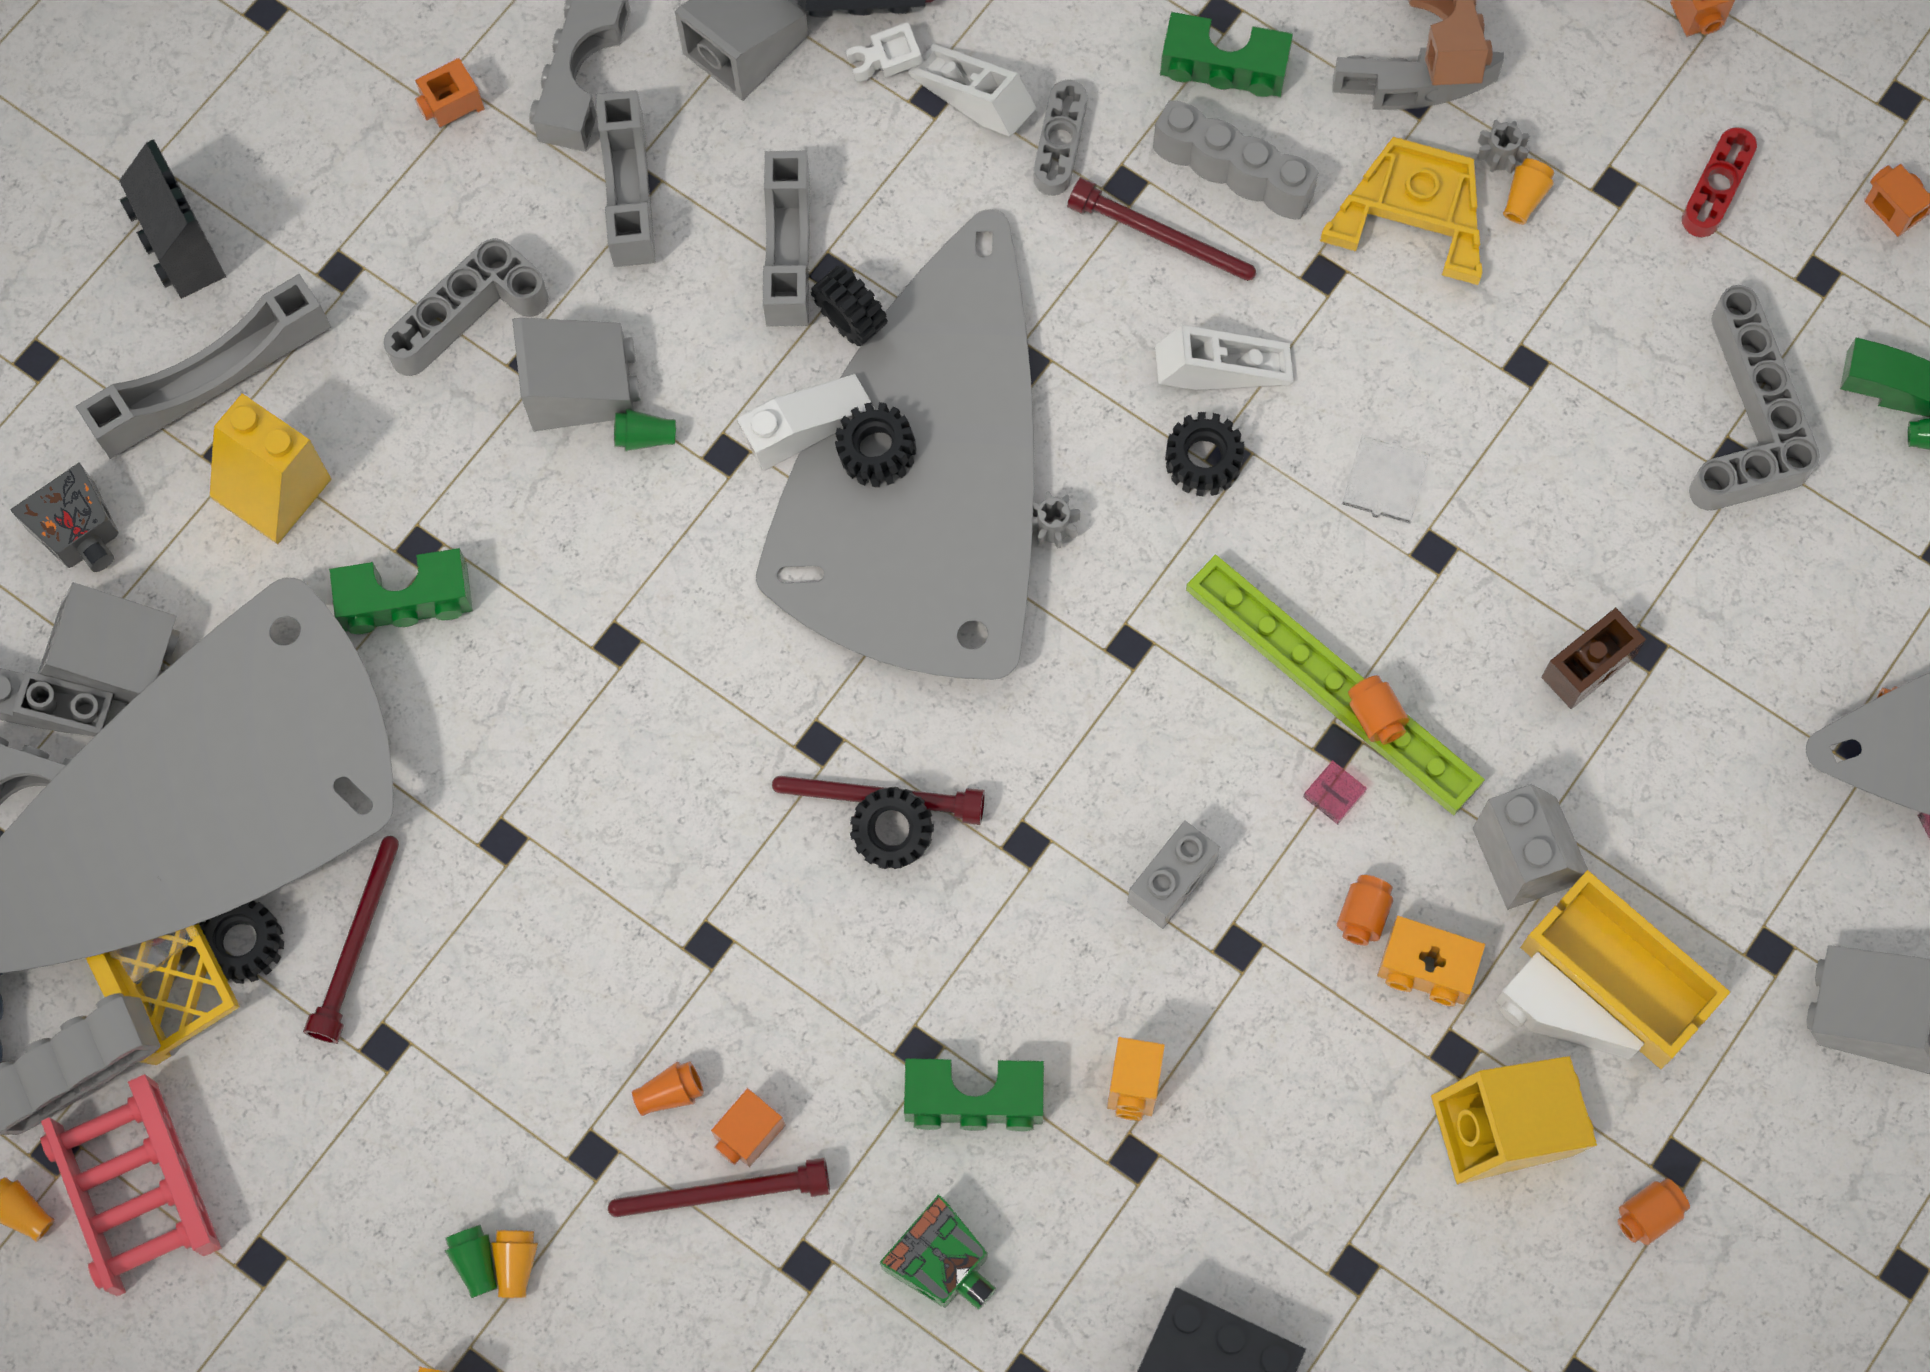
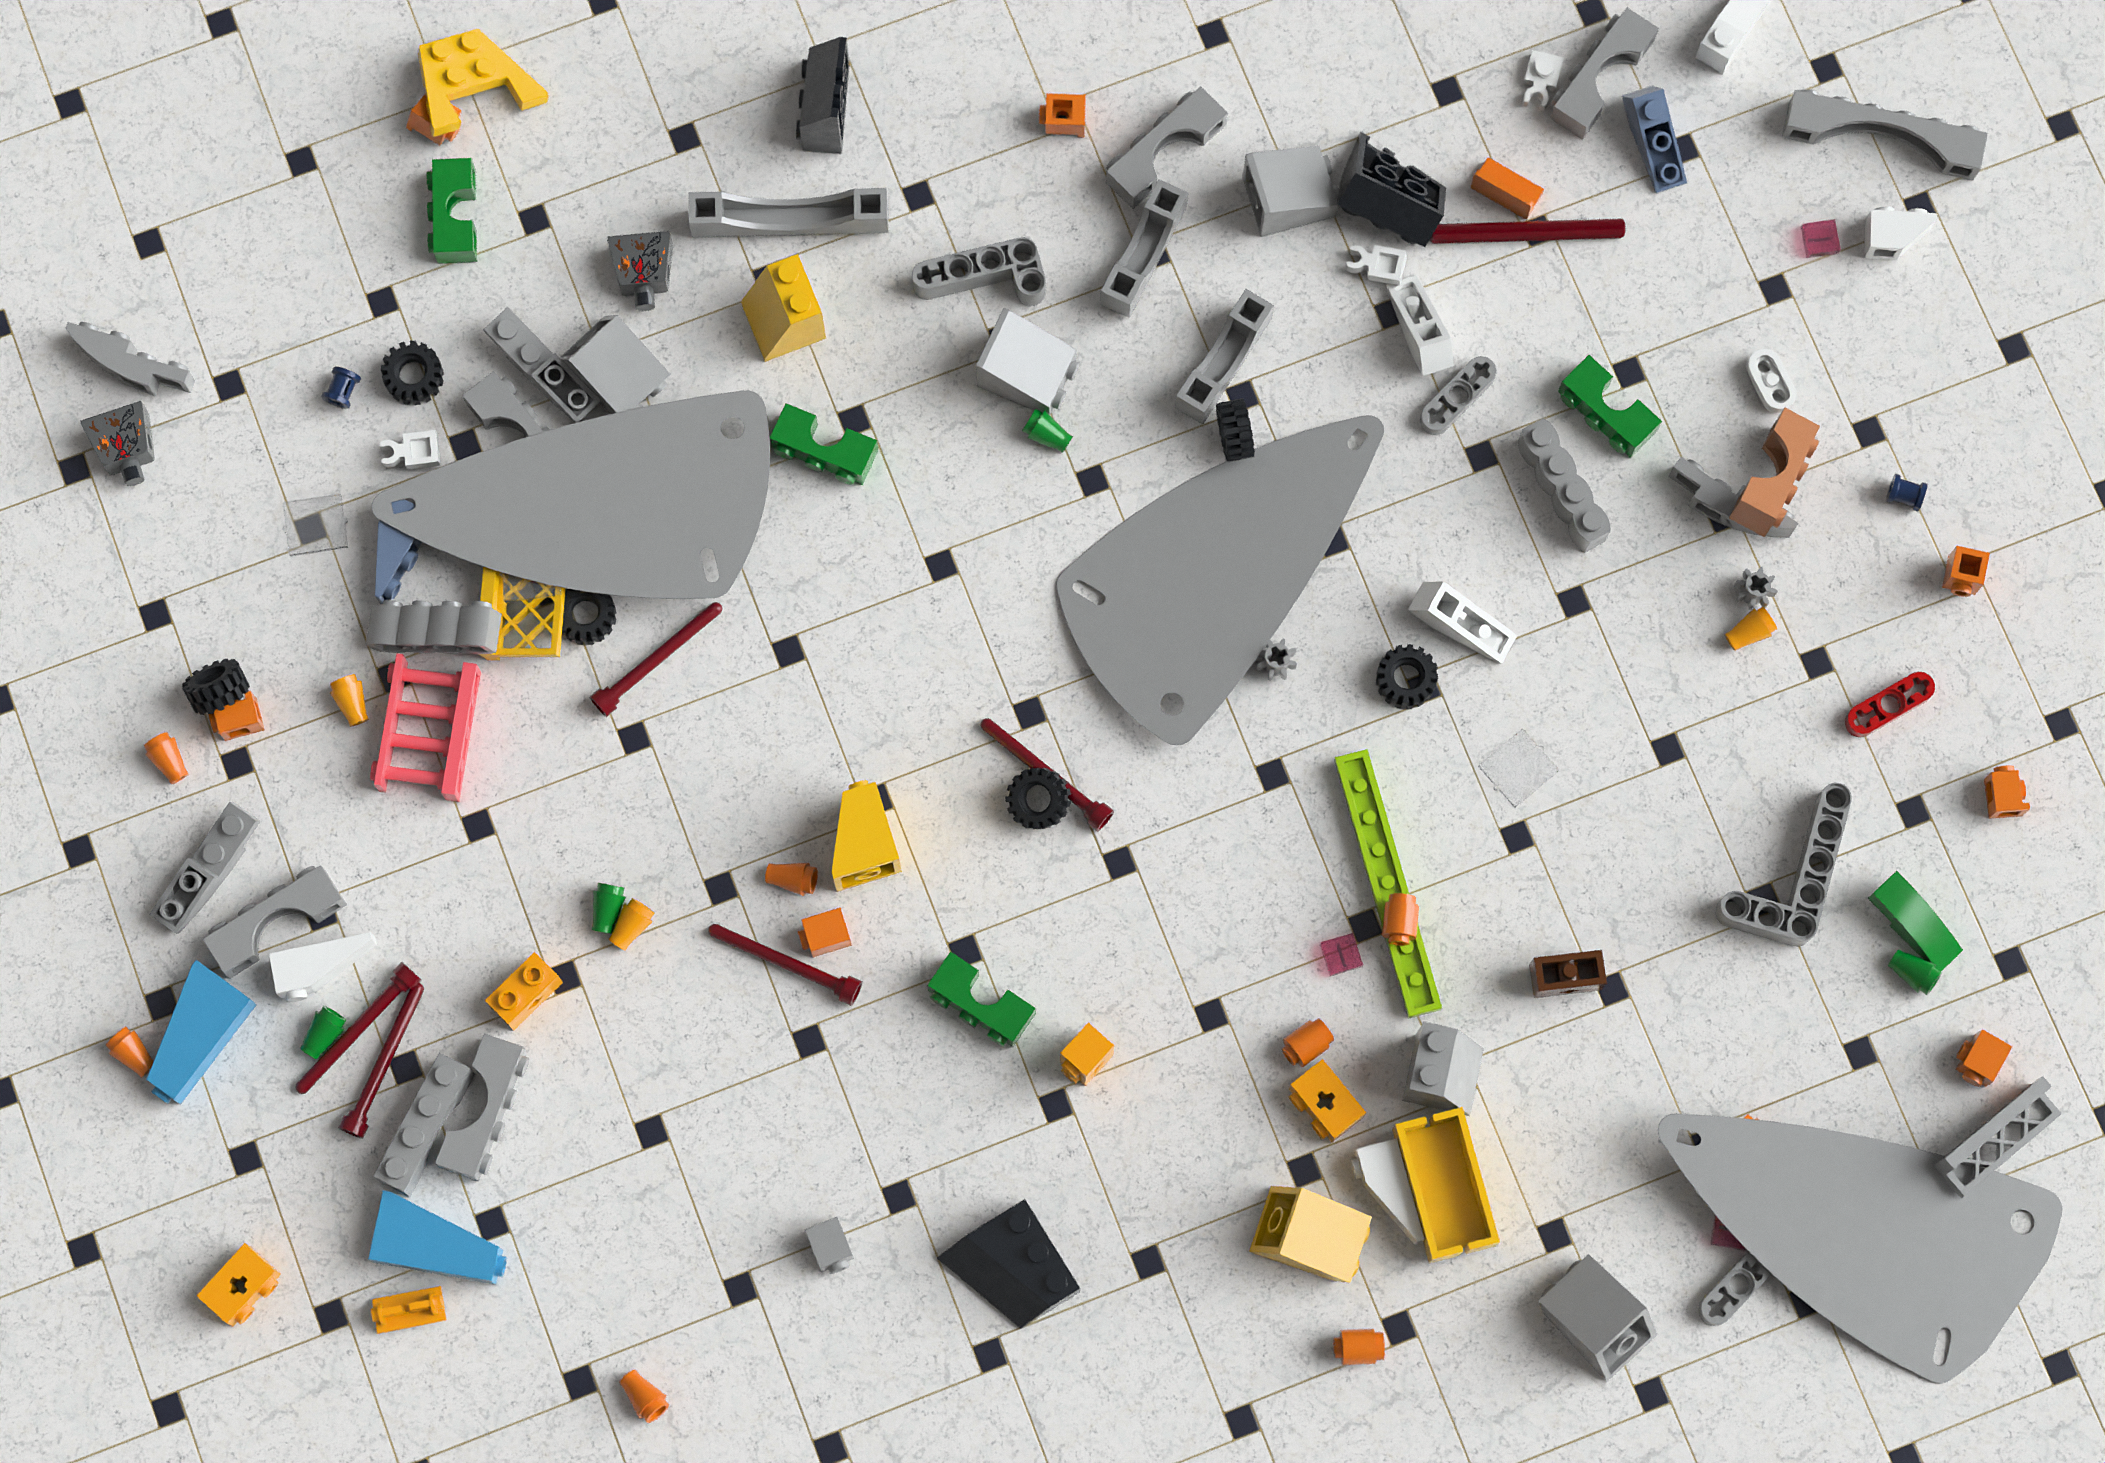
camera: 30 degrees right, 5 degrees up
(727, 991) = (863, 839): none -> yellow slope
(800, 419) = (1157, 488): white slope -> none
(873, 422) = (1192, 517): black tyre -> none
(940, 1258) = (893, 1089): torso -> none
(1090, 199) = (1447, 451): dark red piece -> none
(1173, 874) = (1198, 942): light grey brick -> none
(1418, 189) = (1677, 582): yellow wing -> none

